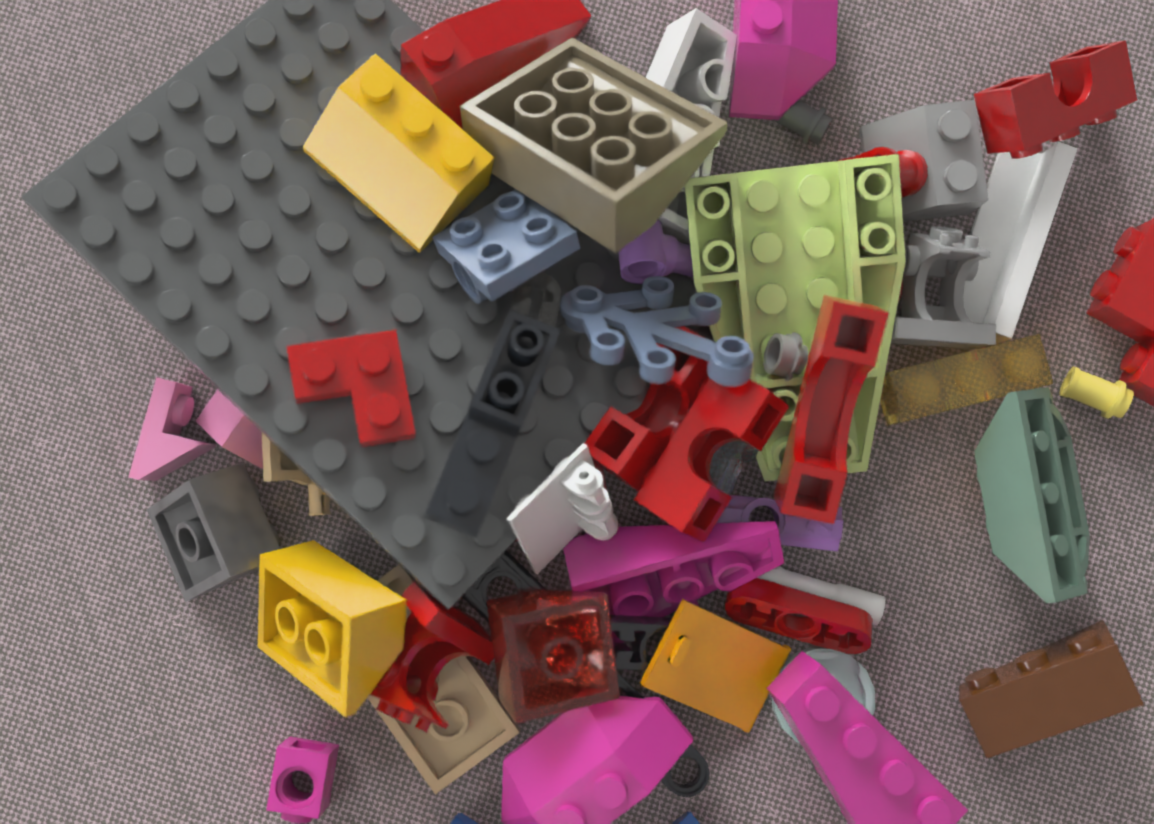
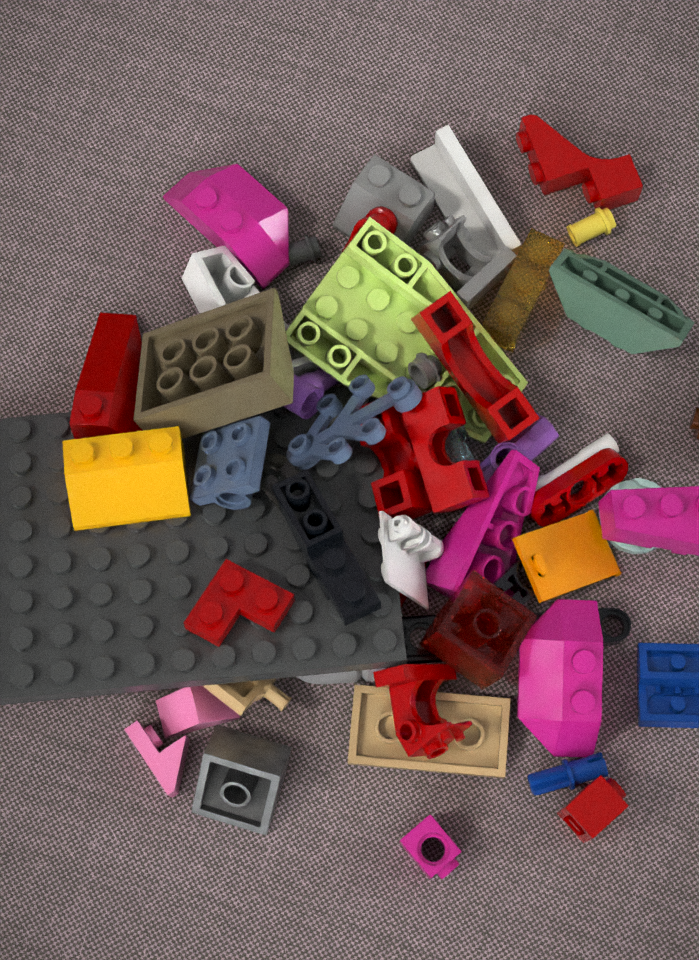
camera: 50 degrees left, 10 degrees down
(328, 623) = (353, 746): yellow slope -> none
(1032, 109) = (406, 133): red arch -> none

